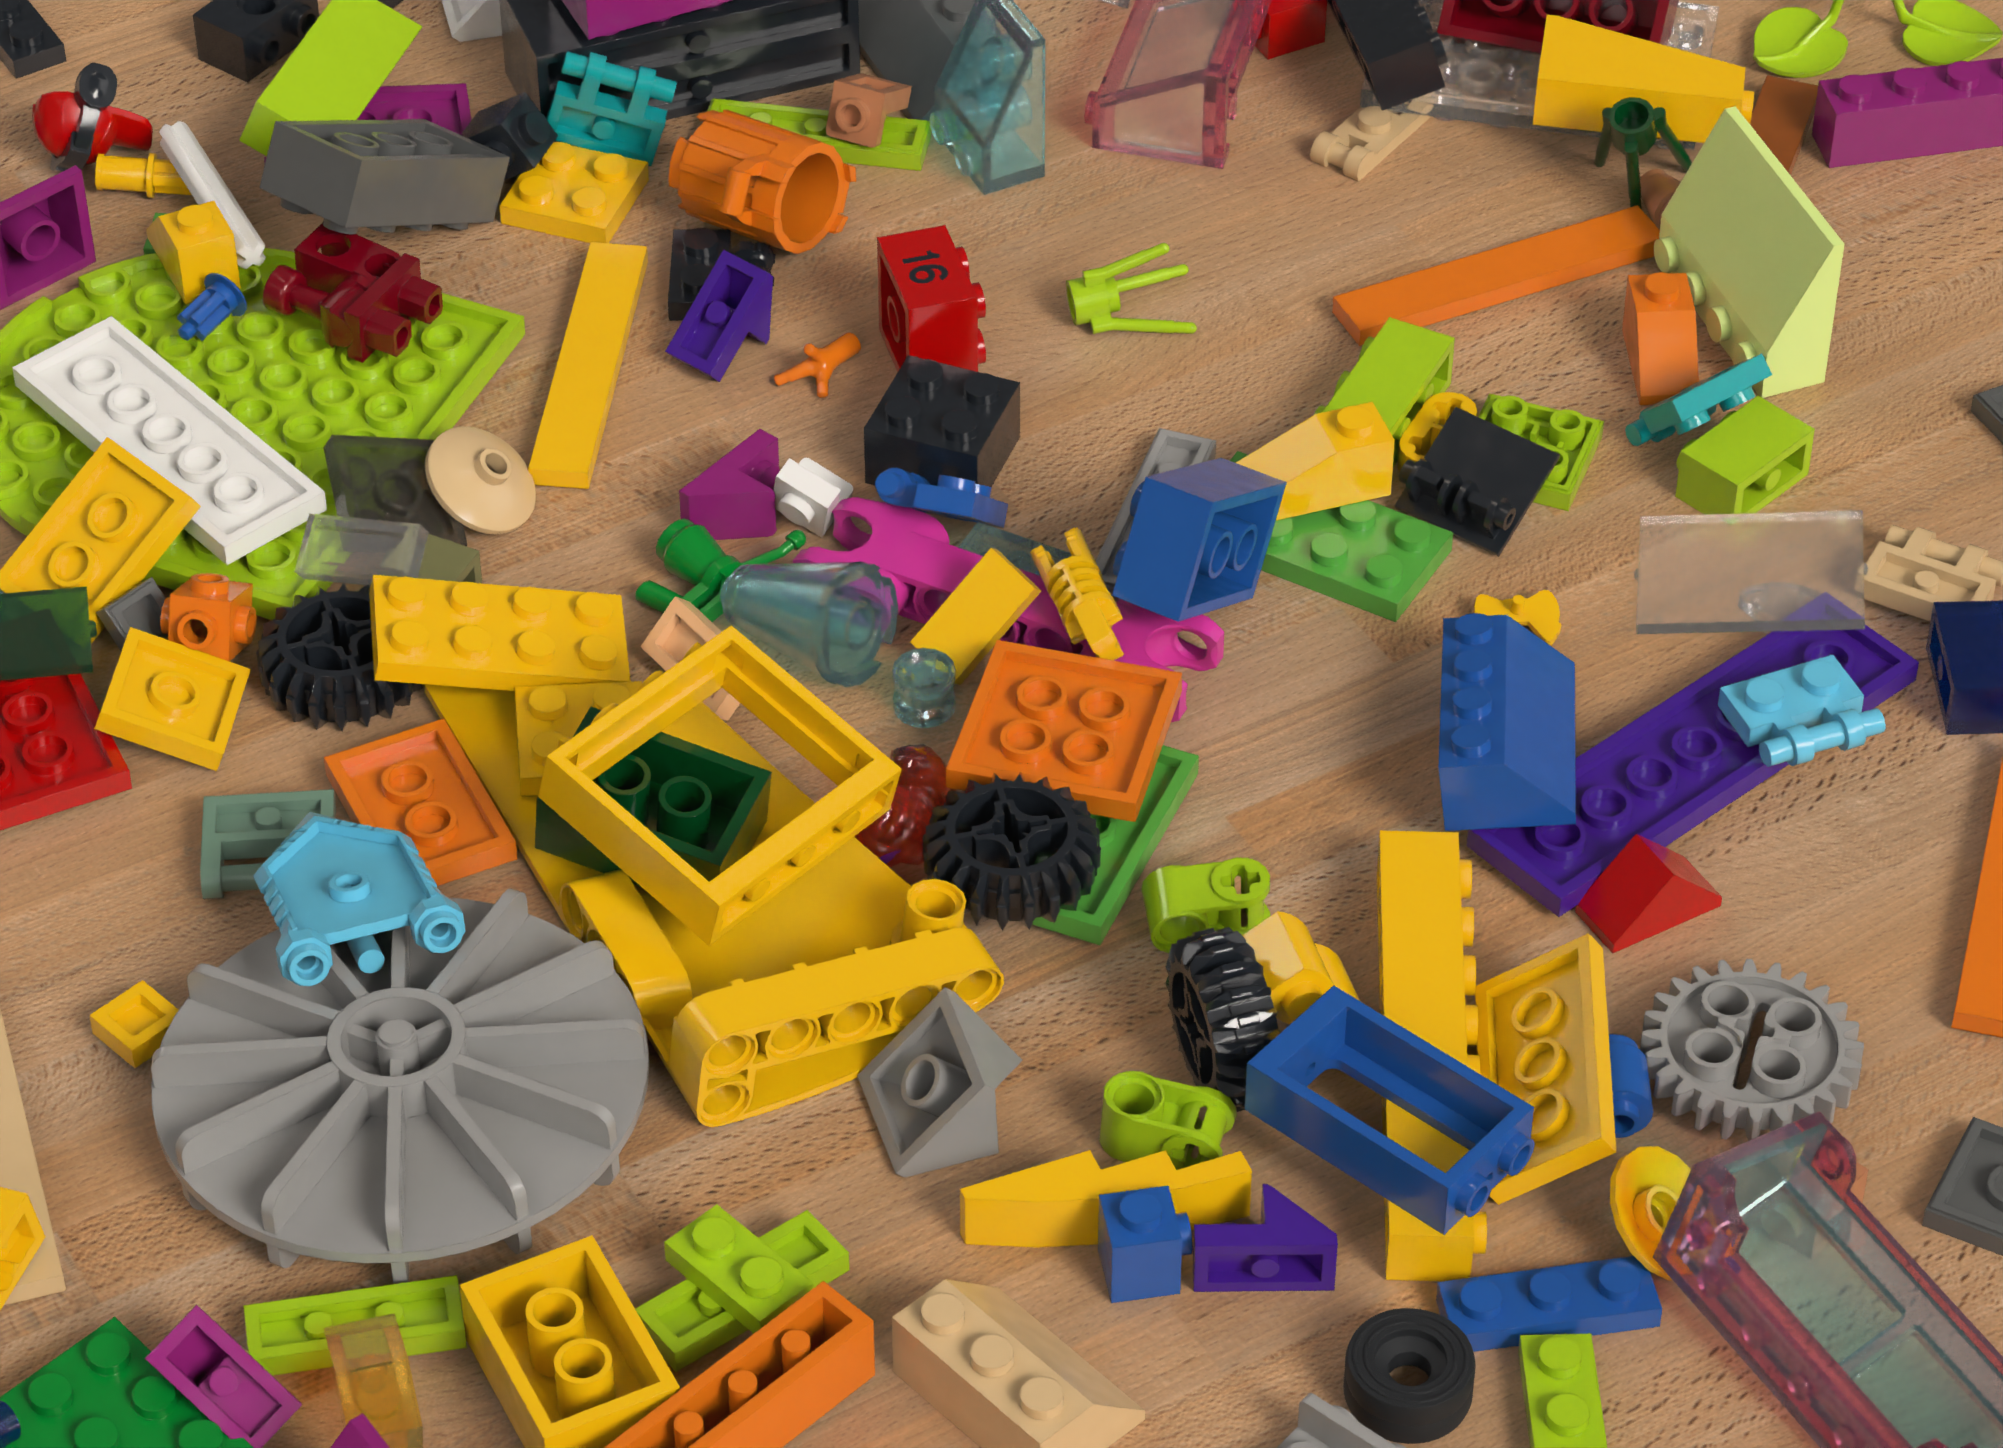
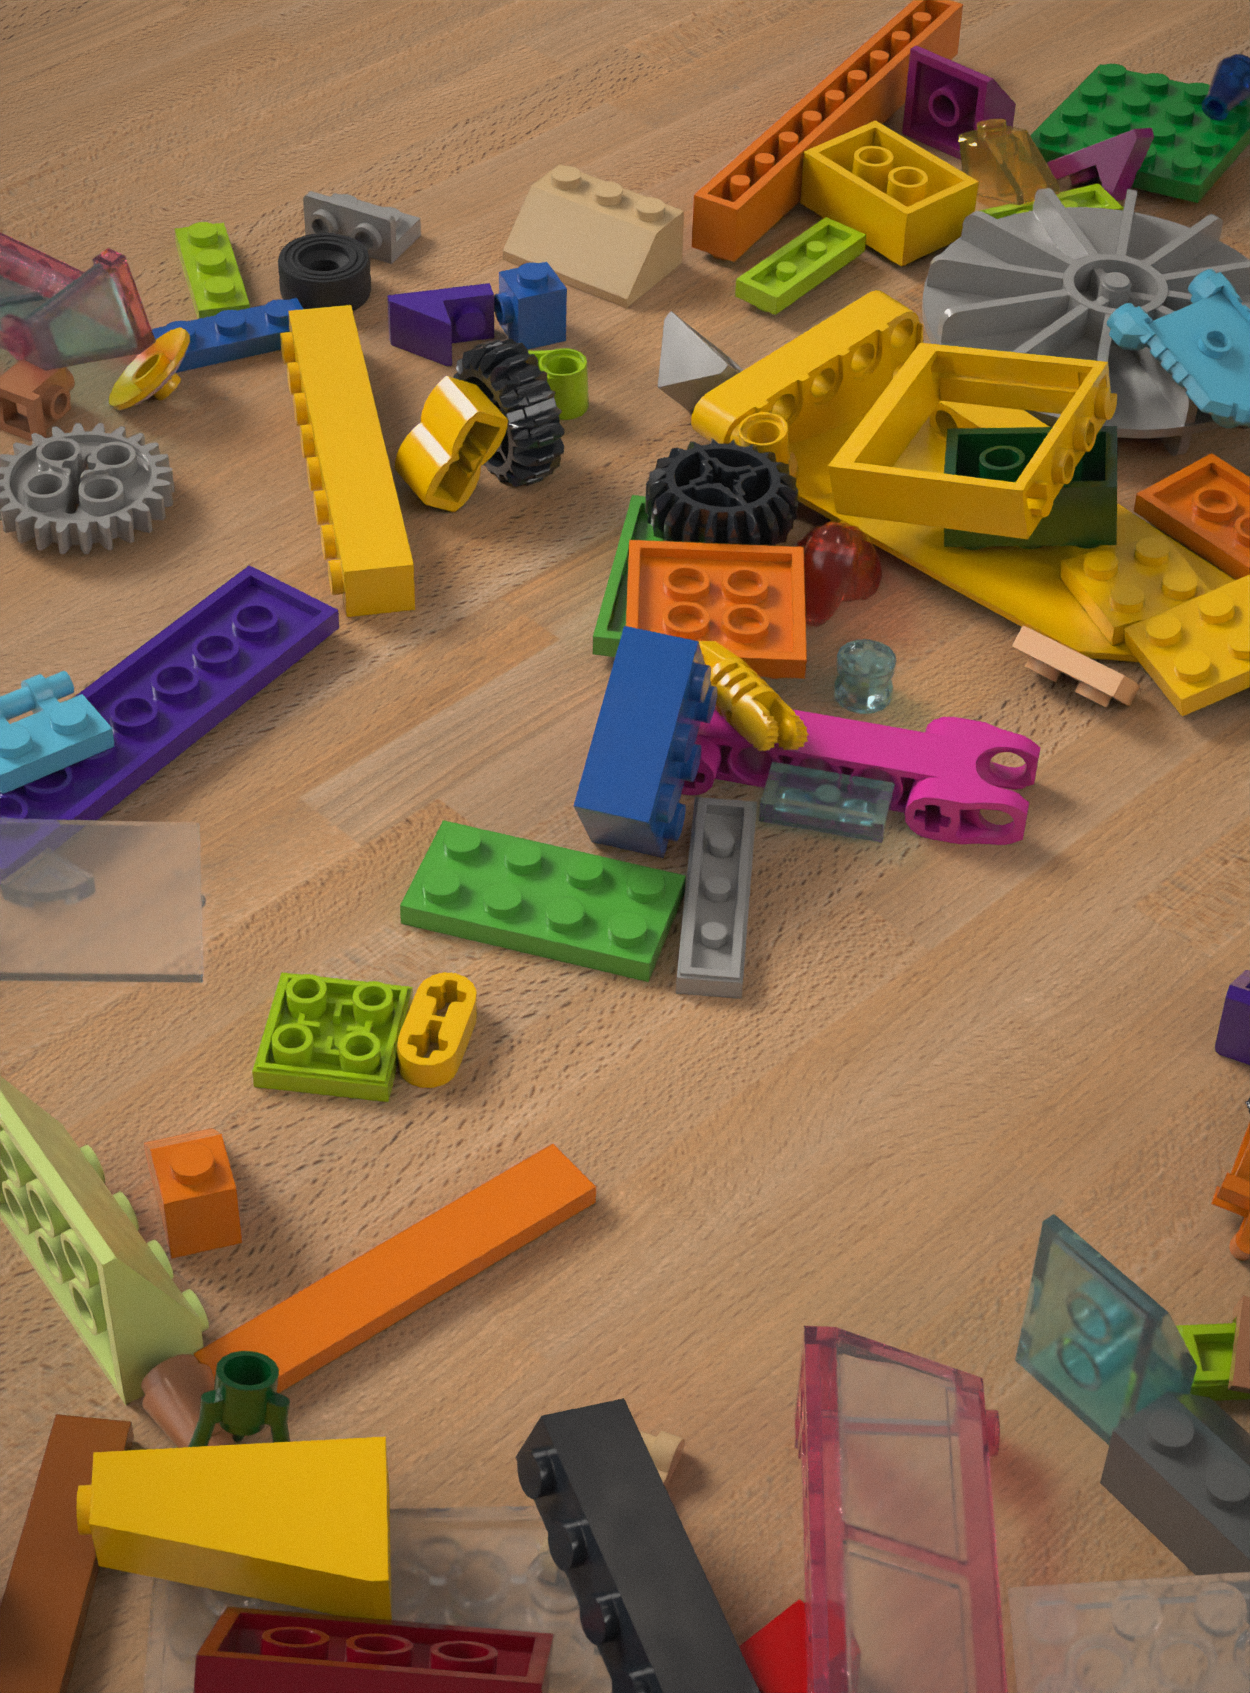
camera: 165 degrees right, 0 degrees up
(698, 559) = (1129, 752): green piece -> none
(735, 1268) = (804, 247): lime plate -> none
(737, 491) = (1134, 822): magenta slope -> none
(809, 494) = (1061, 817): white bracket -> none
(816, 614) = (1001, 686): clear light blue cone -> none
(822, 362) = (1137, 1015): orange bar -> none
(928, 299) = (1041, 1019): red brick -> none
(943, 423) = (964, 917): black brick -> none
(951, 497) = (906, 813): blue plate -> none
(978, 613) = (838, 703): yellow tile -> none
(1060, 1198) = (595, 325): yellow slope -> none
(1097, 295) = (867, 1132): lime plant -> none
(1204, 897) = (552, 529): lime piece -> none
(1329, 460) = (559, 884): yellow slope -> none
(1397, 374) = (505, 1043): lime brick -> none
(1411, 1074) = (321, 299): blue piece -> none
(1475, 481) = (387, 942): black hinge -> none
(1505, 727) = (315, 677): blue slope -> none
(1538, 612) = (338, 838): yellow piece -> none
(1549, 1045) = (249, 434): yellow plate -> none
(1630, 1086) = (192, 447): blue brick -> none
(1644, 895) = (158, 596): red slope -> none
(1698, 401) = (133, 1050): teal plate -> none
(1744, 460) = (88, 1027): lime brick -> none

